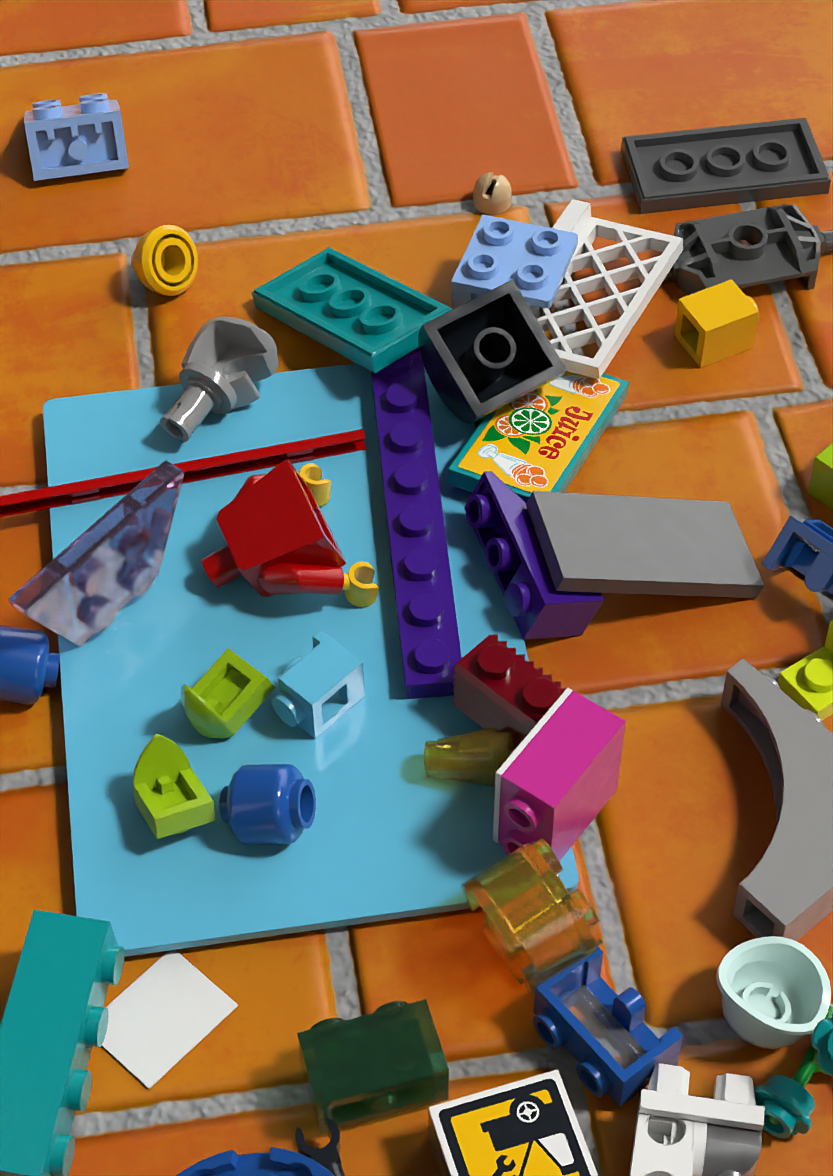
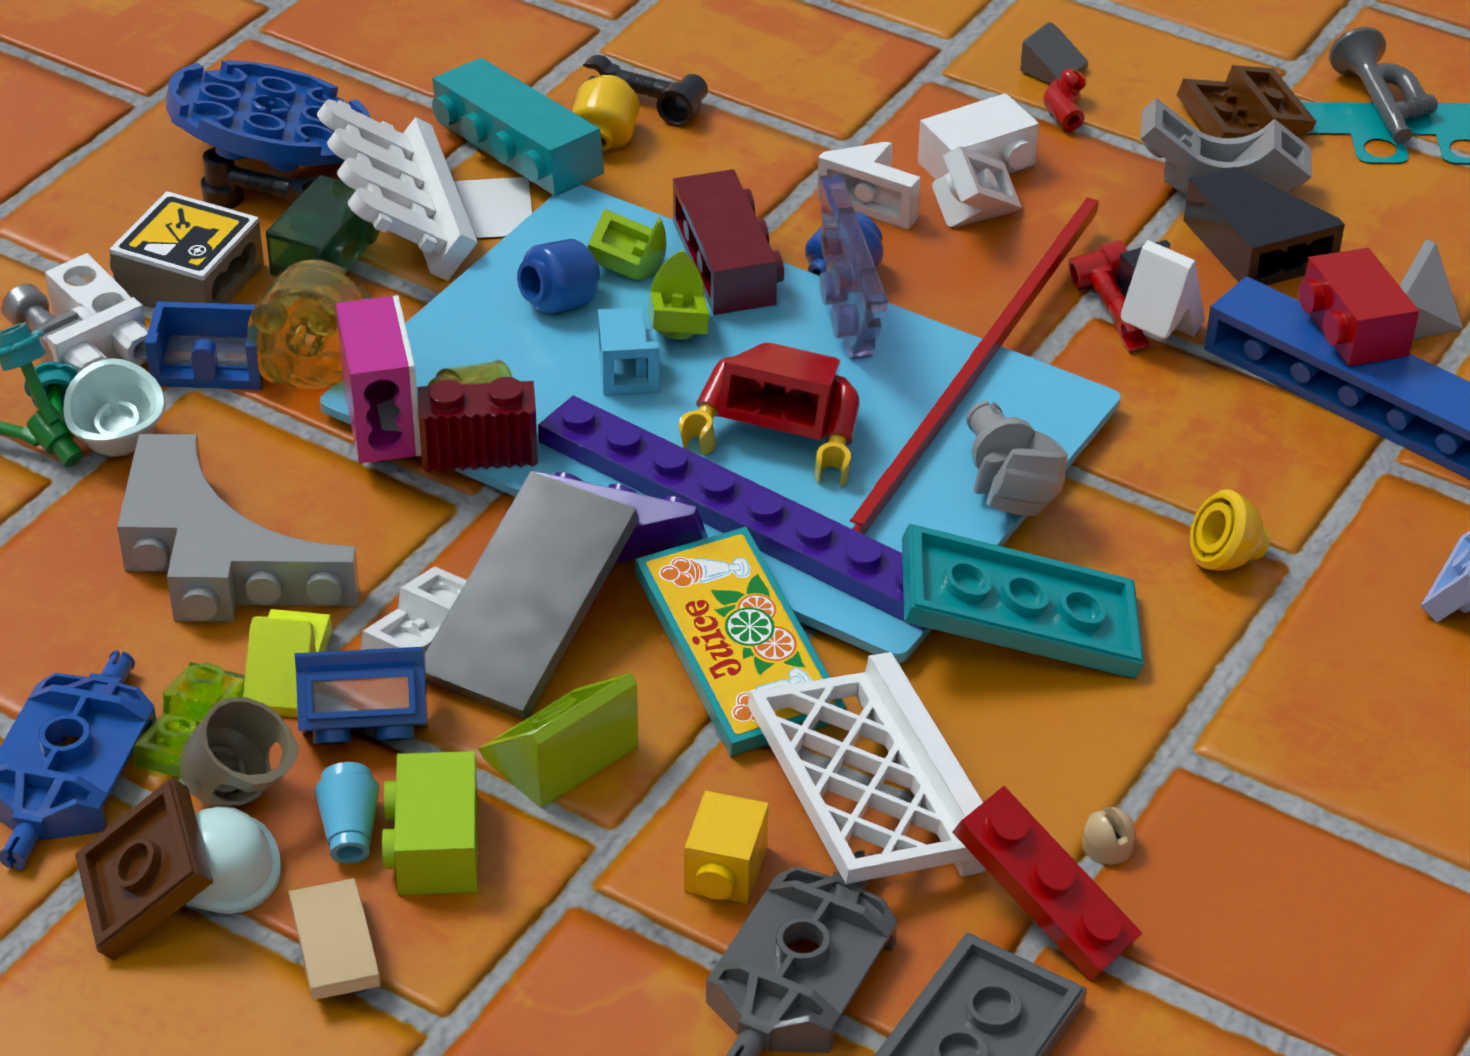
camera: 130 degrees right, 10 degrees down
(97, 728) = (726, 241): none -> dark red brick
(220, 1047) = (401, 184): none -> white fence
(487, 353) = (824, 603): black brick -> none
(513, 250) = (950, 719): light blue bracket -> none
(580, 170) = (1047, 883): none -> red plate
(712, 631) = (419, 613): none -> white slope
(728, 452) = (568, 739): none -> lime slope

